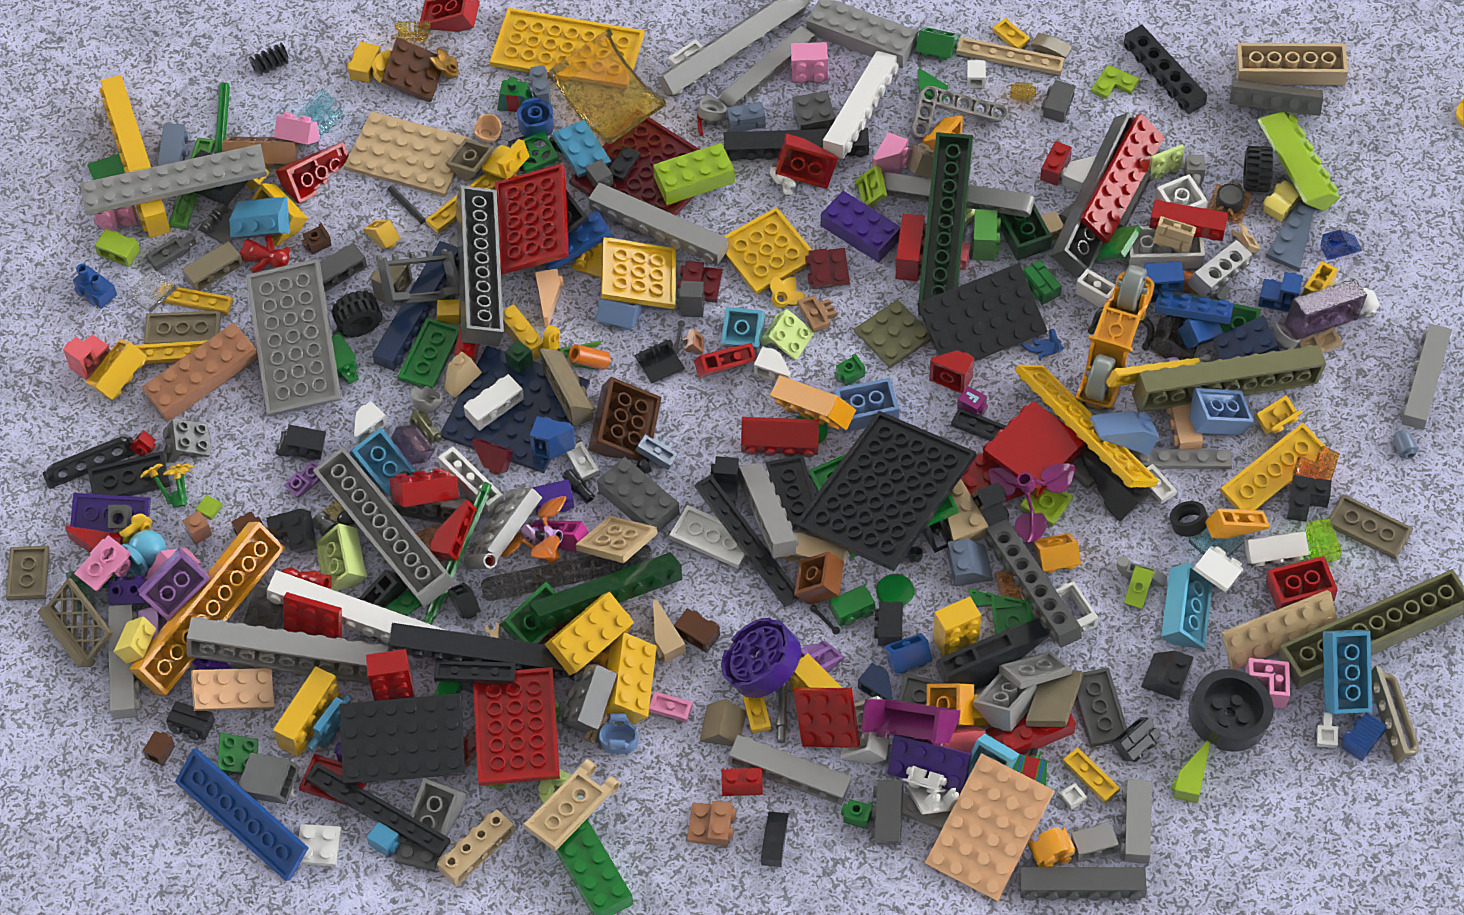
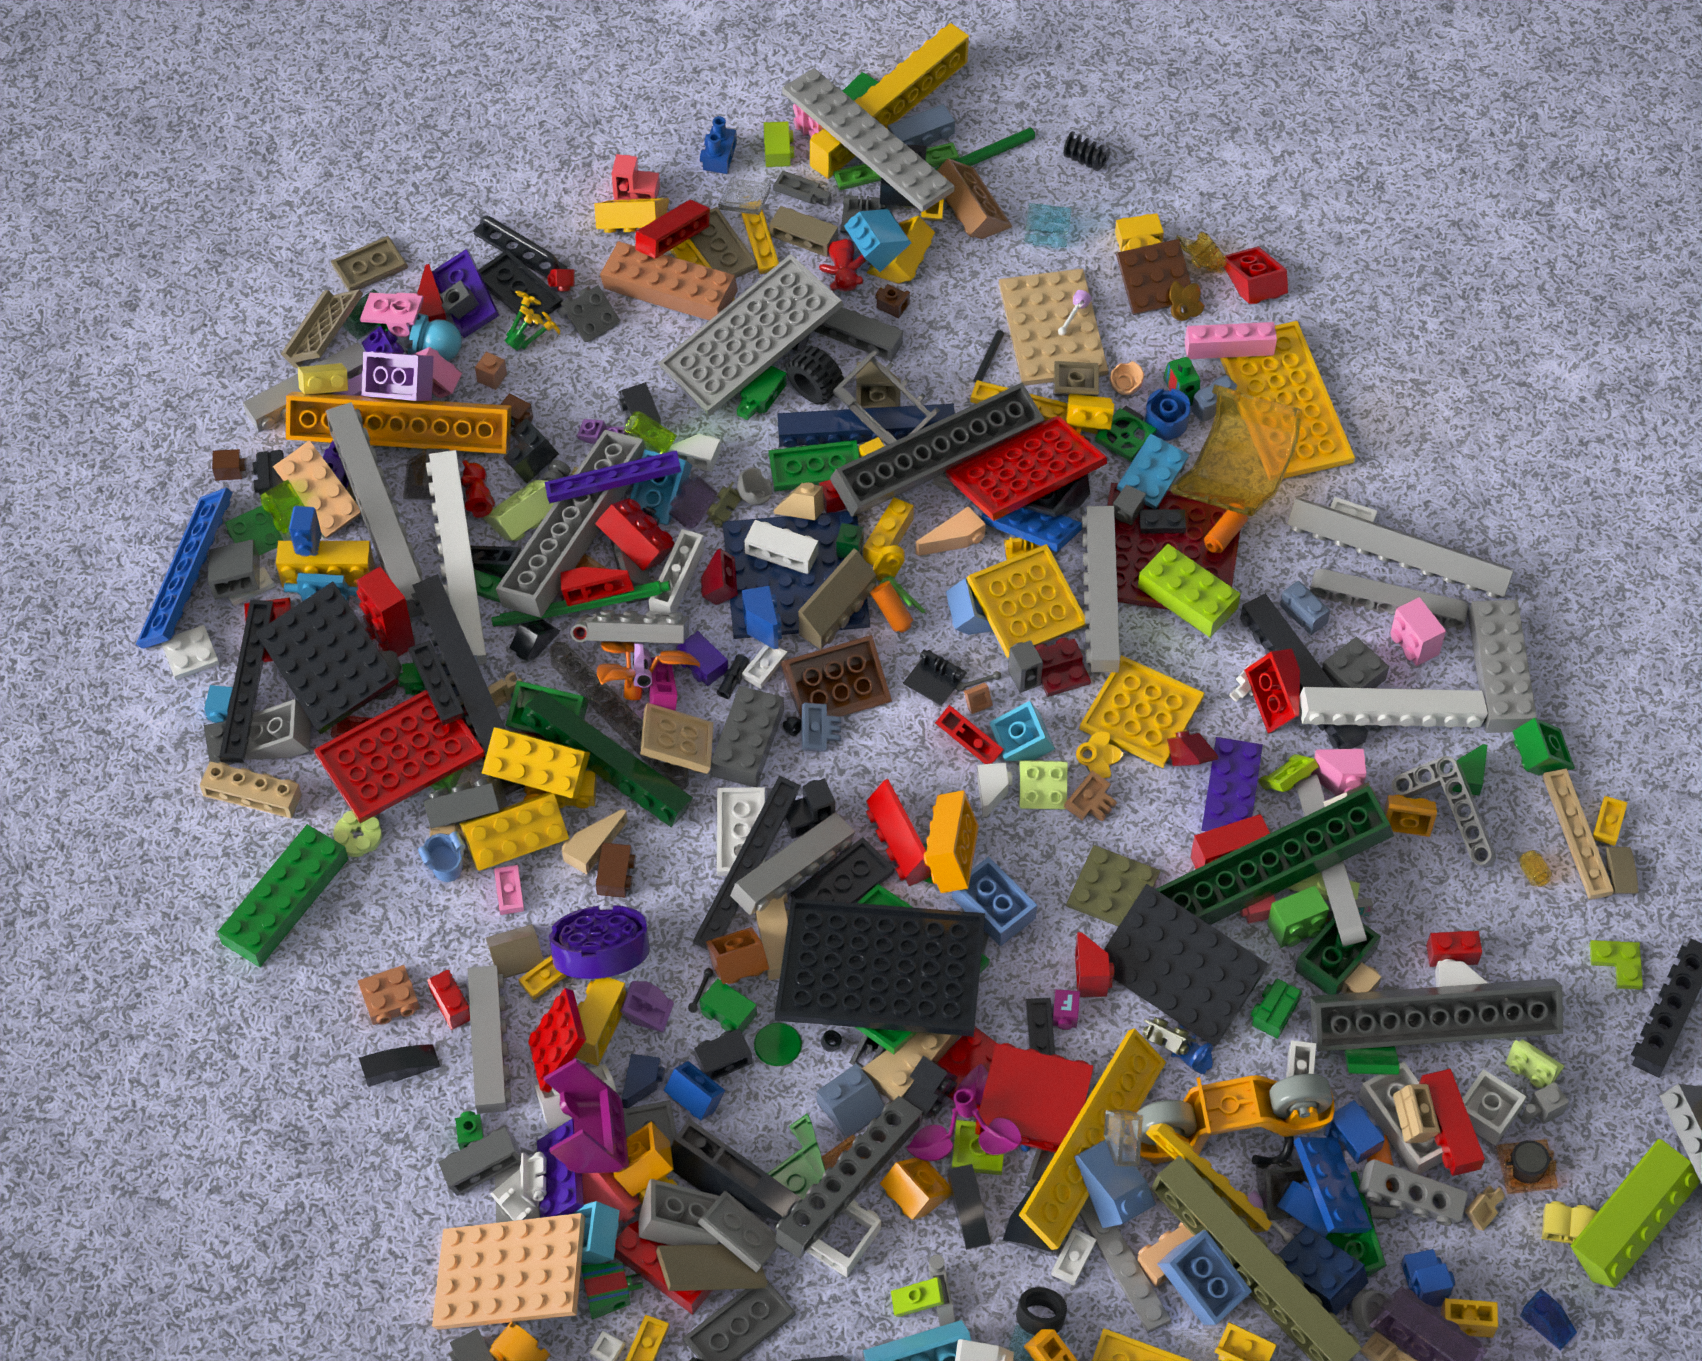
camera: 60 degrees right, 0 degrees up
(139, 523) = (456, 316): yellow plate -> none
(157, 345) = (672, 228): none -> red brick
(209, 507) = (524, 370): lime tile -> none
(233, 718) = (280, 504): none -> clear neon green brick
(287, 700) = (305, 530): none -> blue brick
(296, 129) = (1006, 213): bright pink slope -> none
(305, 175) = (968, 253): red wedge -> none
(311, 616) = (422, 516): red plate -> none
(333, 440) = (653, 434): none -> clear neon green brick
(370, 477) = (612, 477): none -> dark purple plate
(382, 233) = (935, 352): yellow slope -> none
(404, 122) = (1080, 300): none -> hinge
(502, 51) = (1230, 340): none -> bright pink brick
(563, 812) = (318, 845): tan hinge -> none
(658, 131) = (1224, 531): none -> orange brick
(710, 110) = (1290, 568): light grey piece -> none
(782, 721) = (545, 1005): flat silver bar -> none
(821, 233) = (1190, 749): none -> dark red slope
(827, 268) = (1153, 779): dark red plate -> none
(850, 370) = (1035, 871): green brick -> none
(956, 626) = (744, 1121): yellow brick -> none
(976, 73) = (1525, 808): white brick -> none
(1032, 348) = (1177, 1037): none -> olive hinge
(1058, 101) = (1547, 912): dark grey brick -> none
(1087, 527) = (968, 1206): none -> black slope
(1098, 404) = (1123, 1136): none -> clear slope
(1122, 178) = (1469, 1024): plate -> none
(1135, 200) = (1460, 1056): dark grey plate -> none
(1258, 169) = (1588, 1171): black tyre -> none
(1292, 239) = (1518, 1261): sand blue wing -> none

